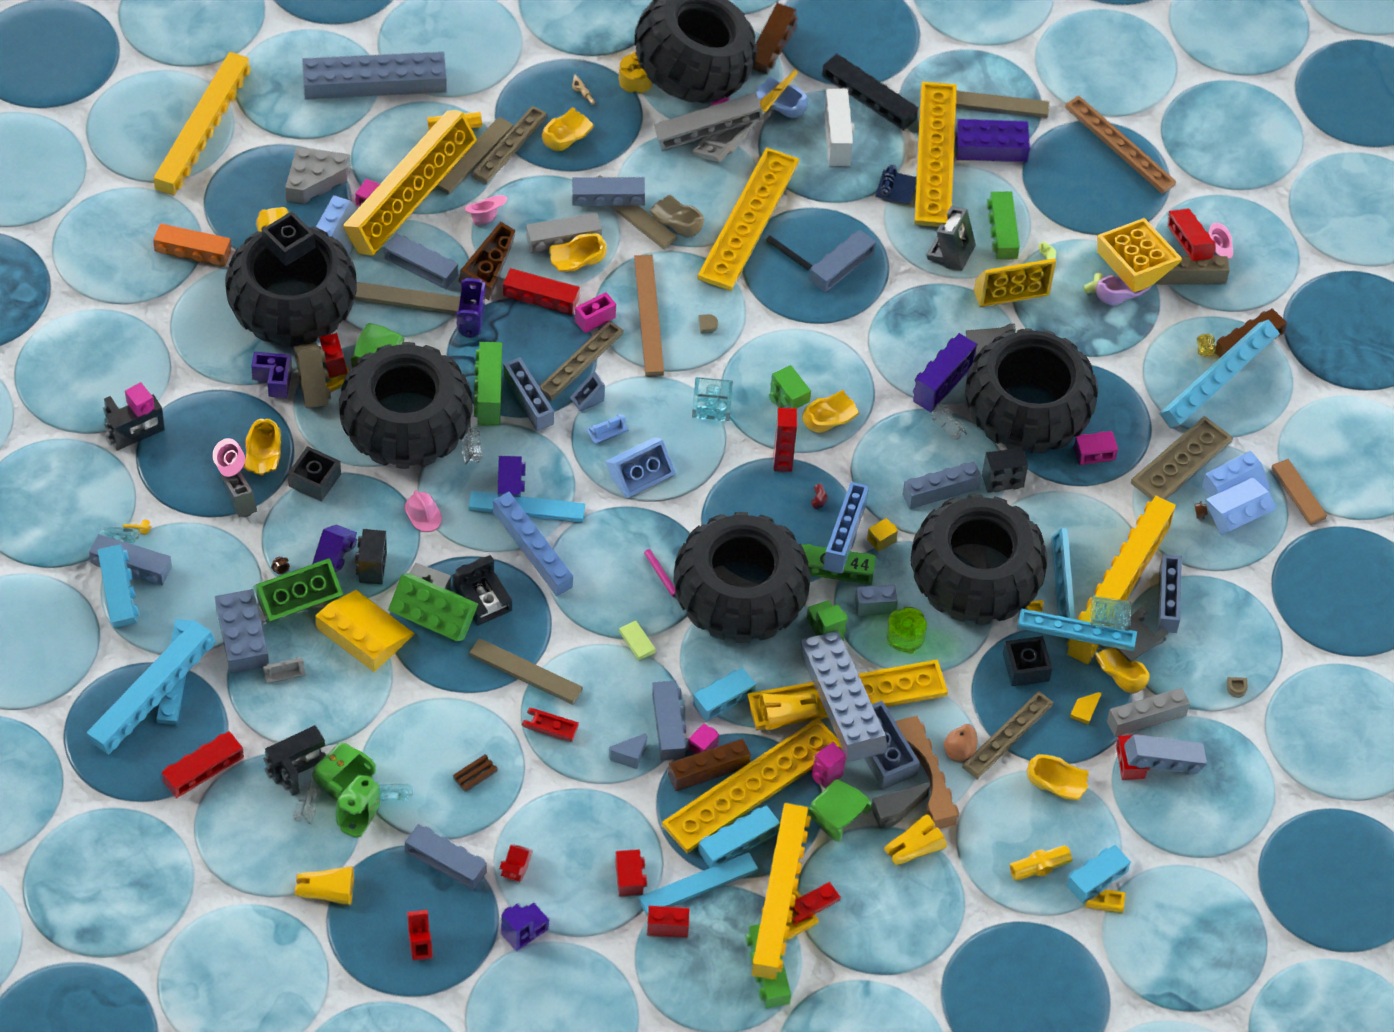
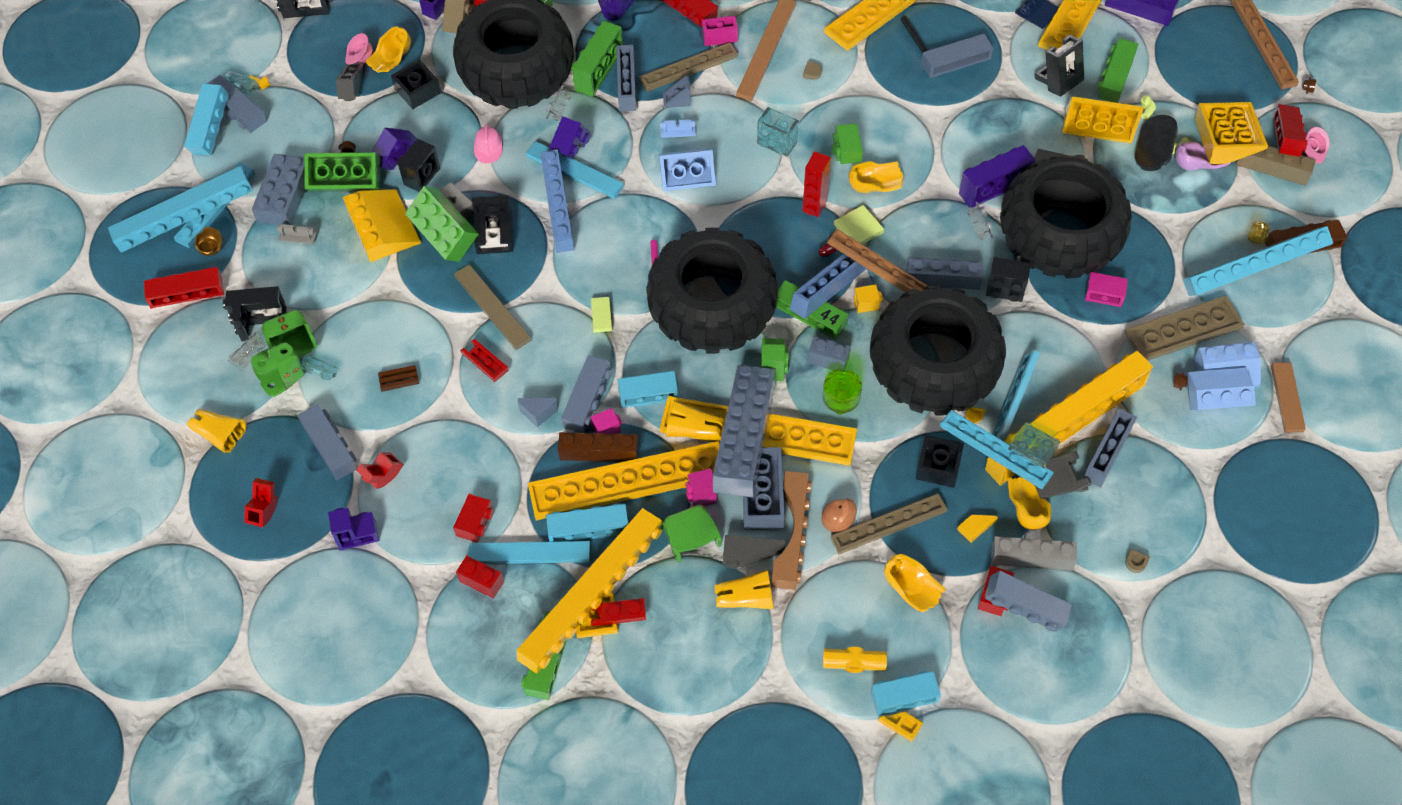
camera: 30 degrees right, 5 degrees up
(200, 709) = (209, 241): none -> pearl gold hair
(836, 467) = (859, 225): none -> yellowish green tile
(880, 497) = (874, 262): none -> medium nougat tile
(1074, 287) = (1156, 142): none -> black tile
(1187, 181) = (1309, 85): none -> reddish brown plate

